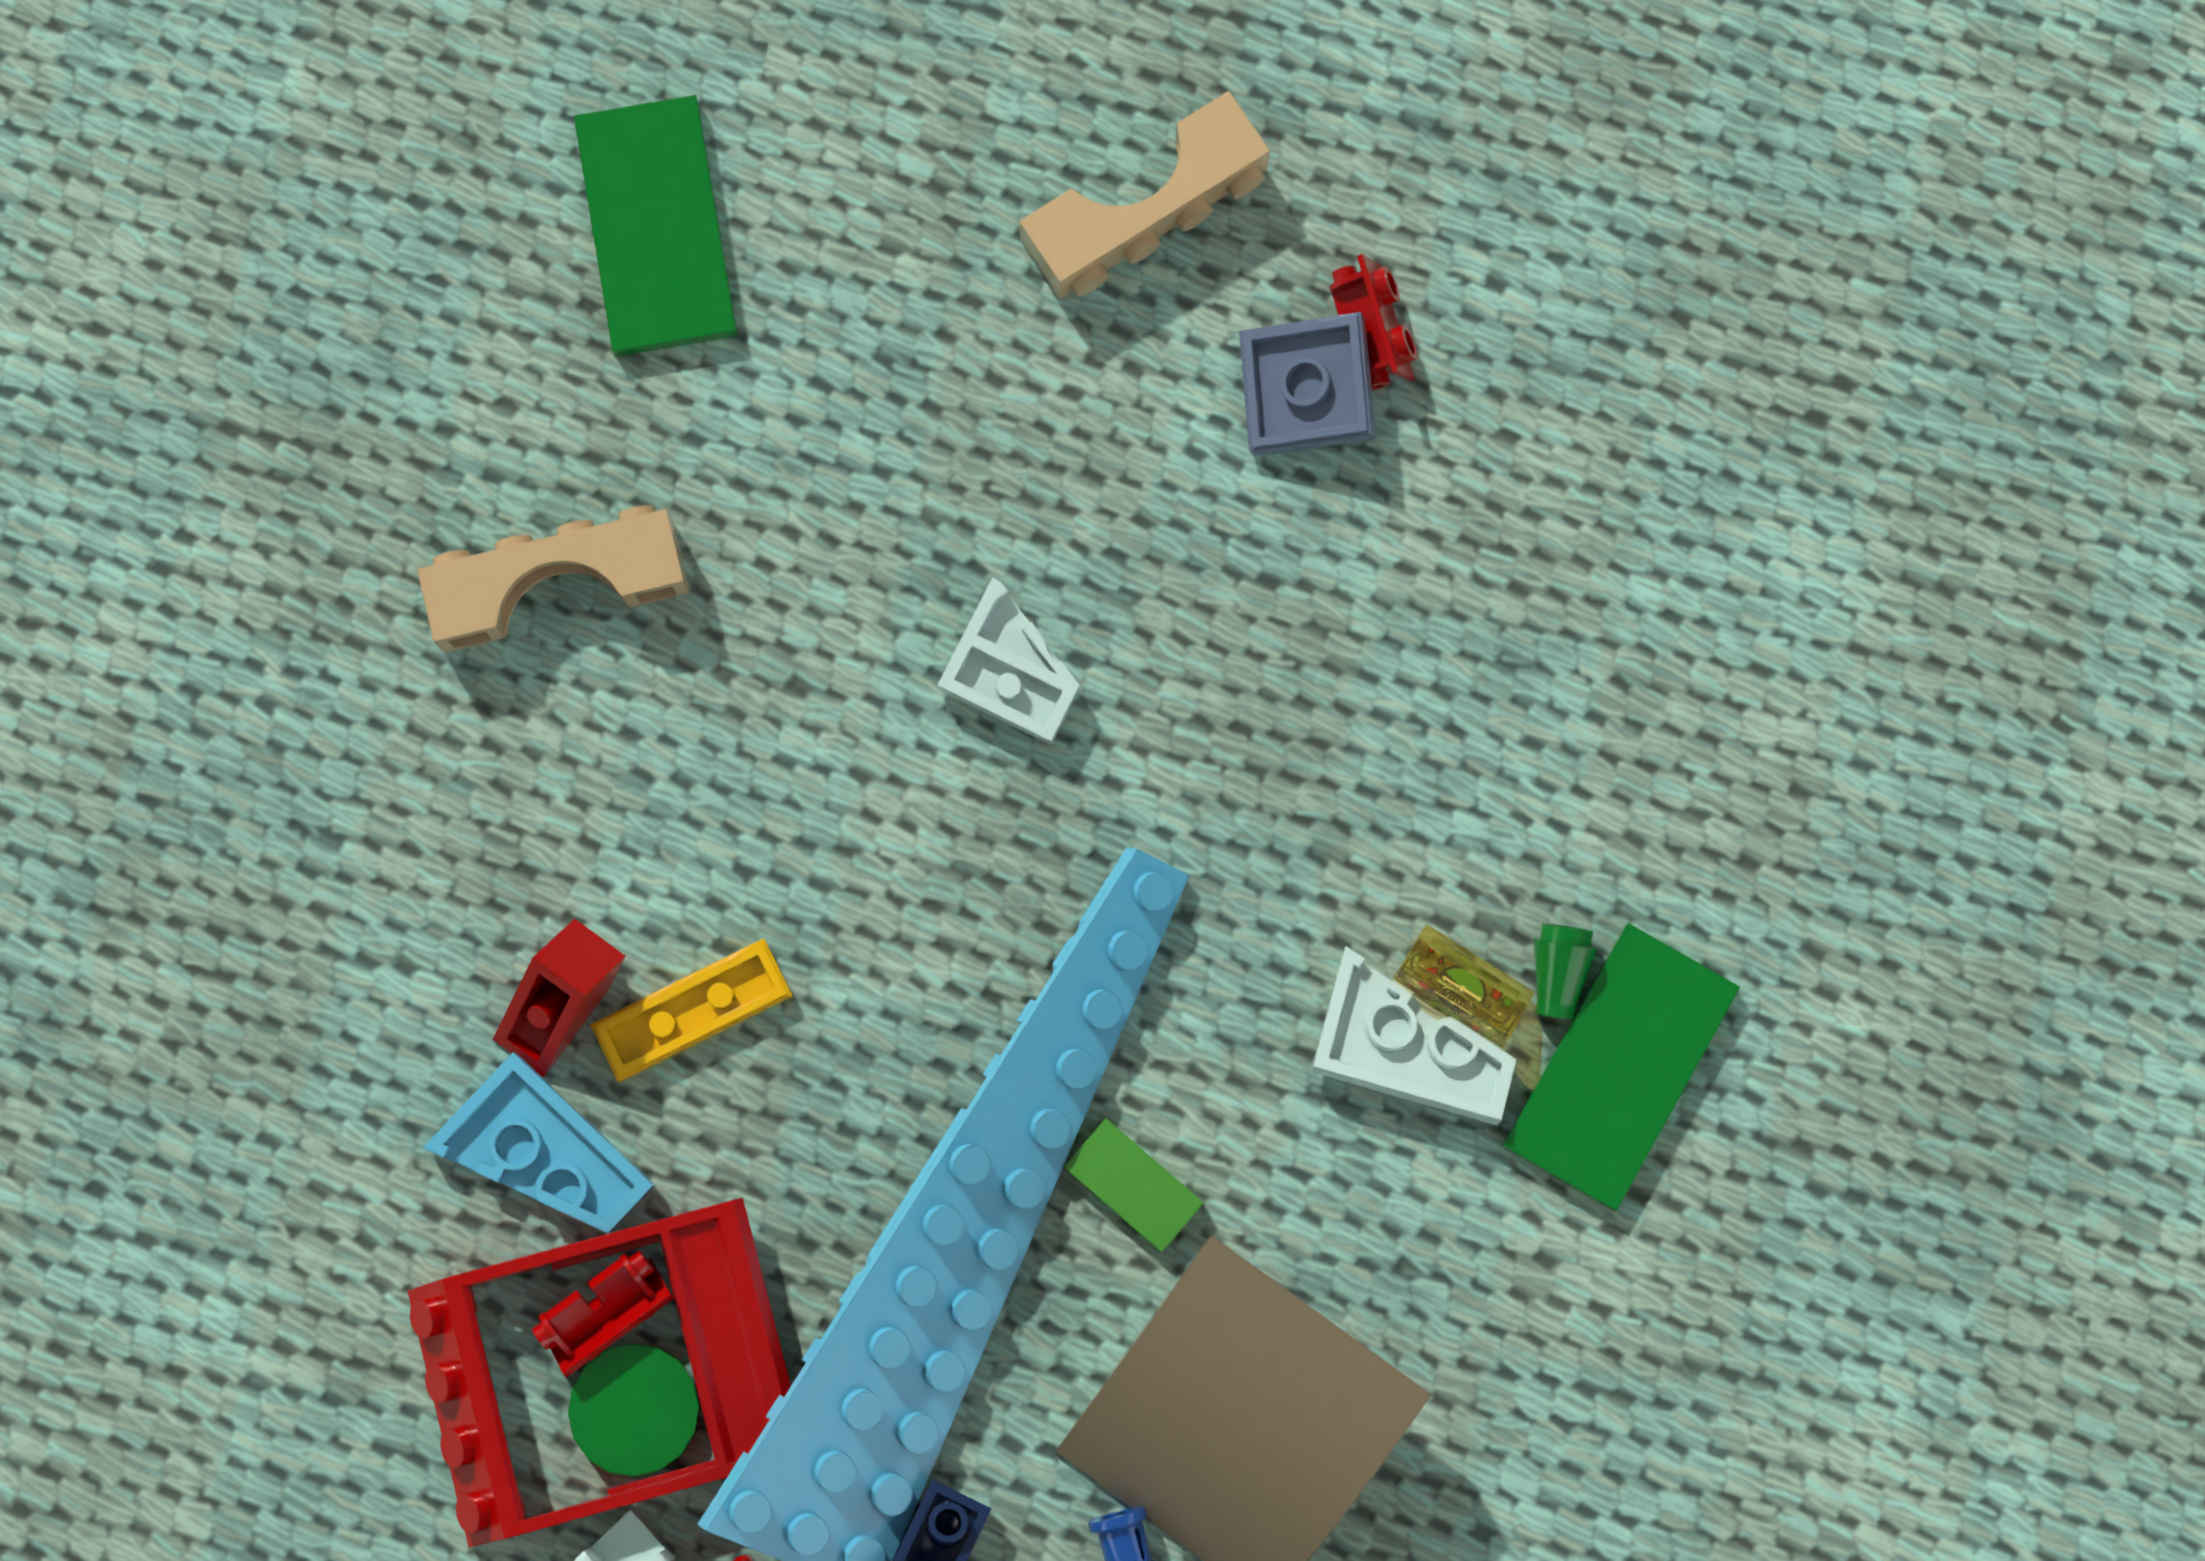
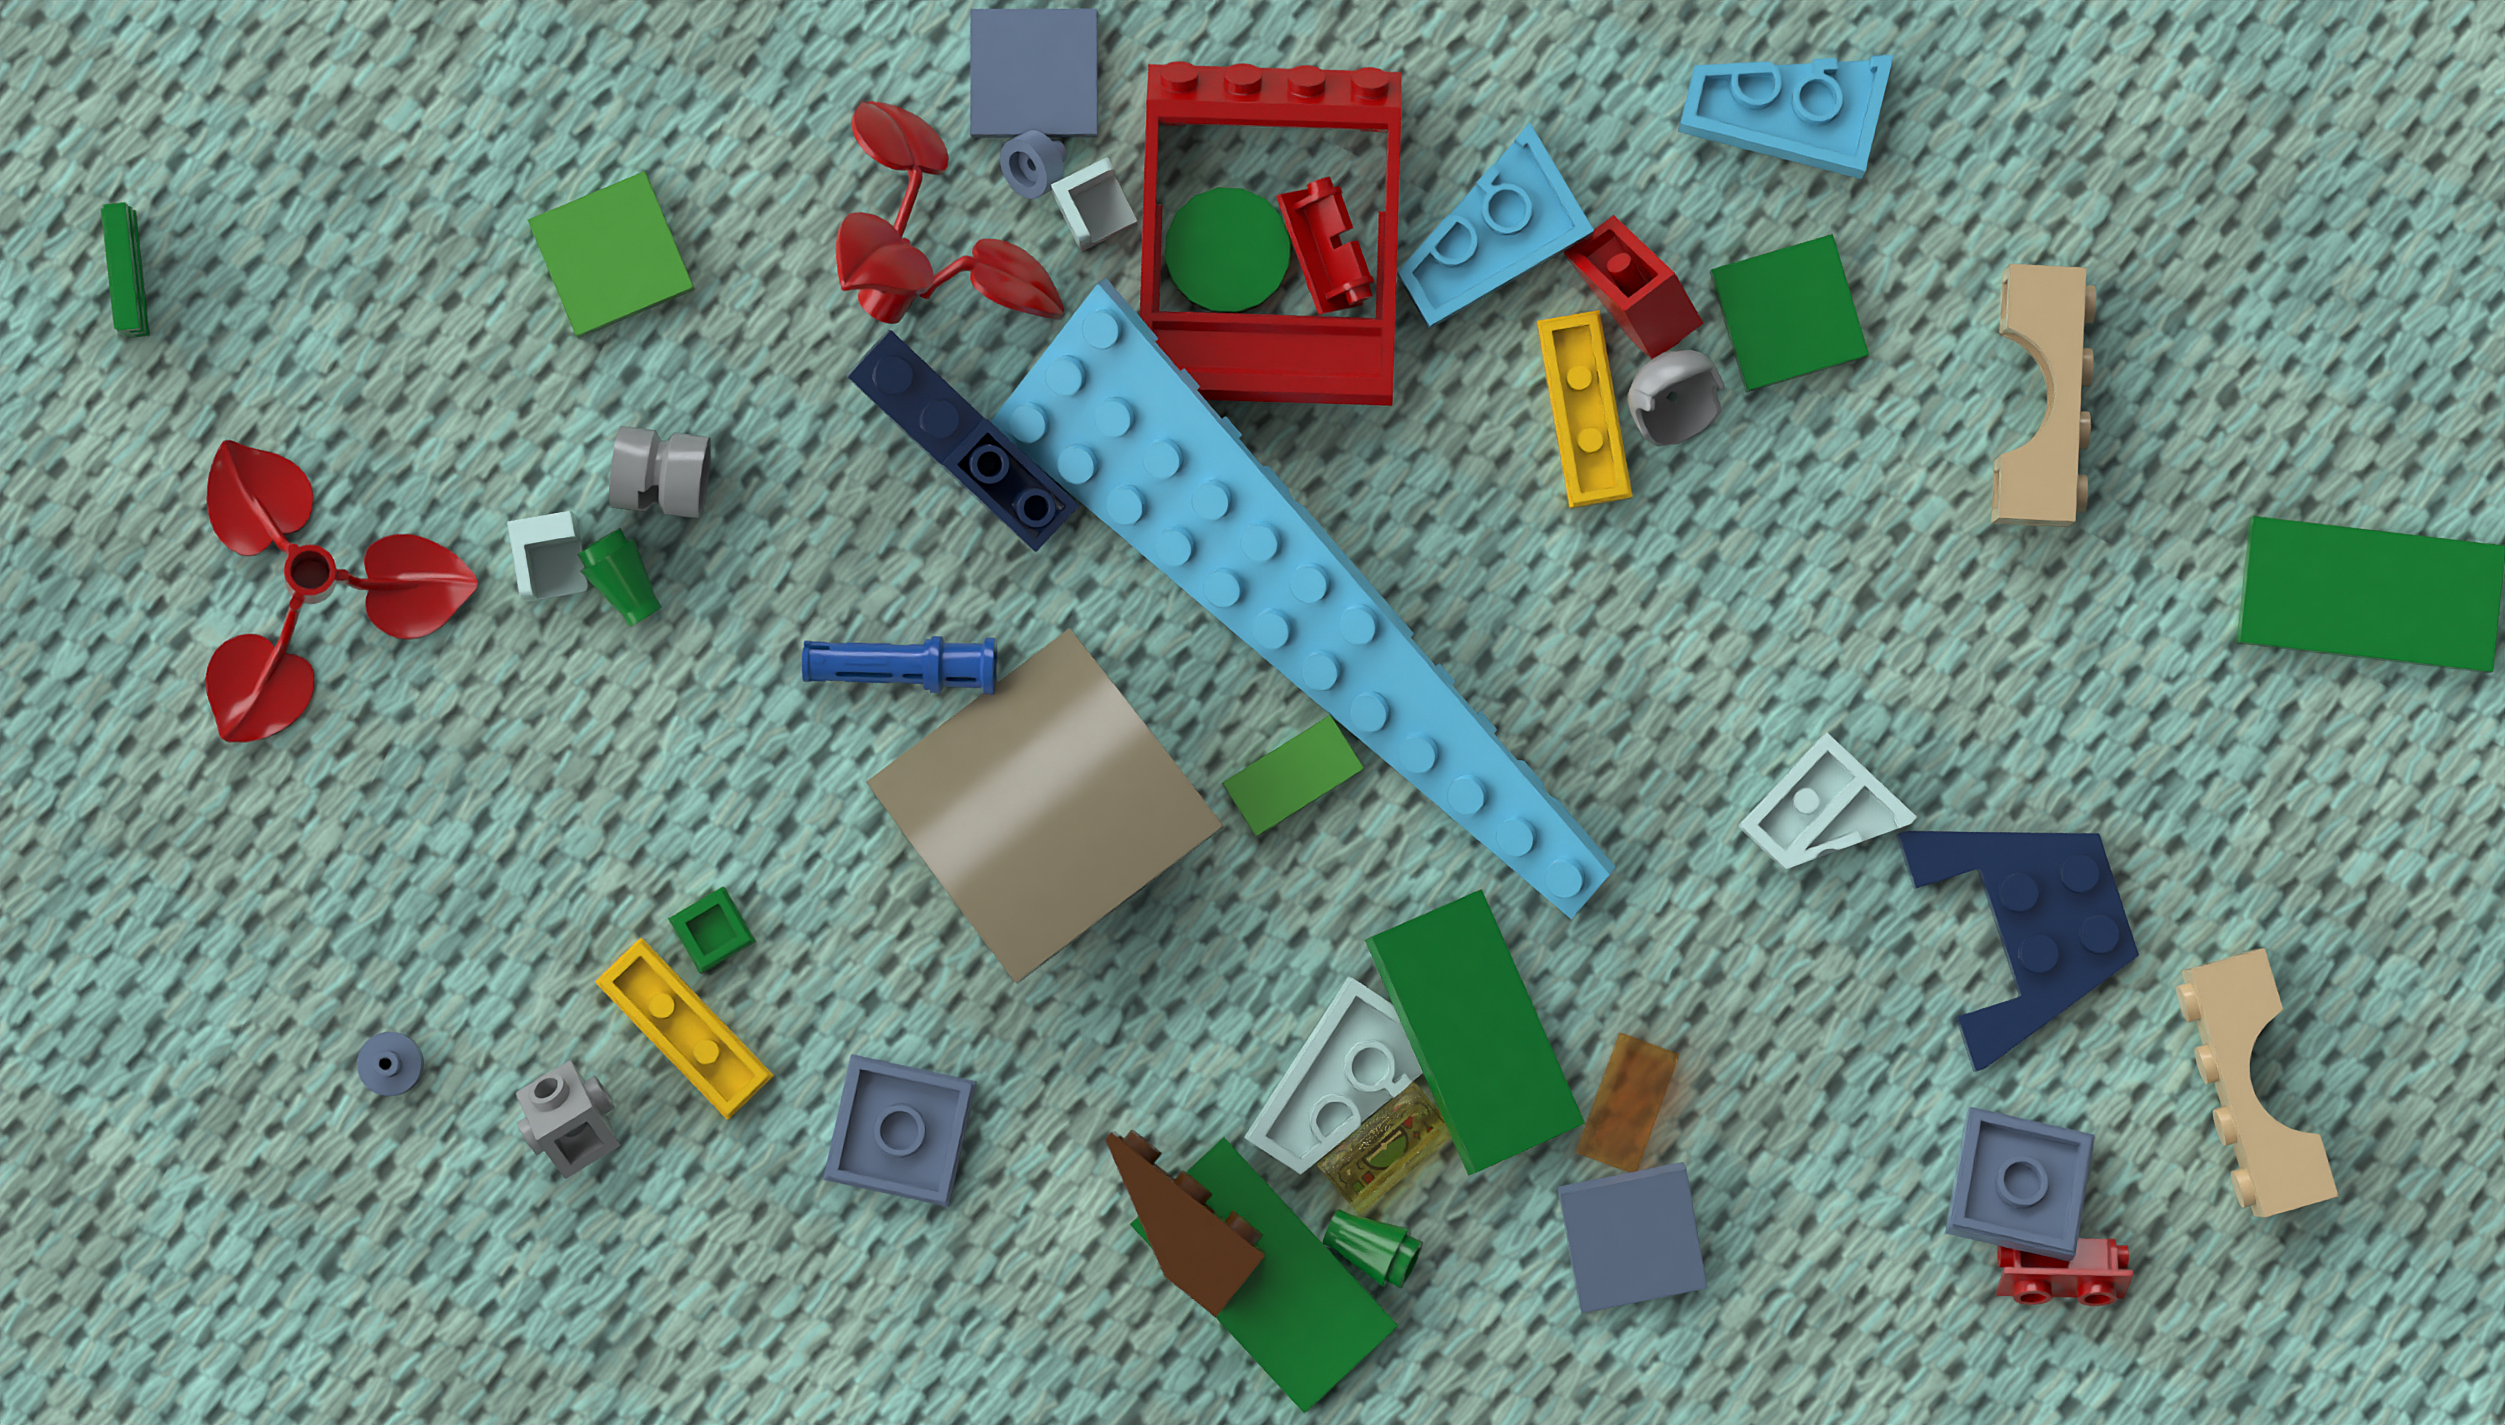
camera: 105 degrees right, 5 degrees up
(341, 891) = (1795, 112): none -> medium azure wing
(541, 841) = (1789, 313): none -> green tile
(656, 902) = (1696, 385): none -> light grey hair
(1046, 428) = (2052, 914): none -> dark blue wing
(1326, 934) = (1474, 1032): none -> green tile
(1348, 770) = (1626, 1103): none -> clear orange plate
(1473, 726) = (1632, 1237): none -> sand blue tile
(1598, 1466) = (899, 1130): none -> sand blue tile
(1622, 1140) = (1190, 1240): none -> reddish brown slope

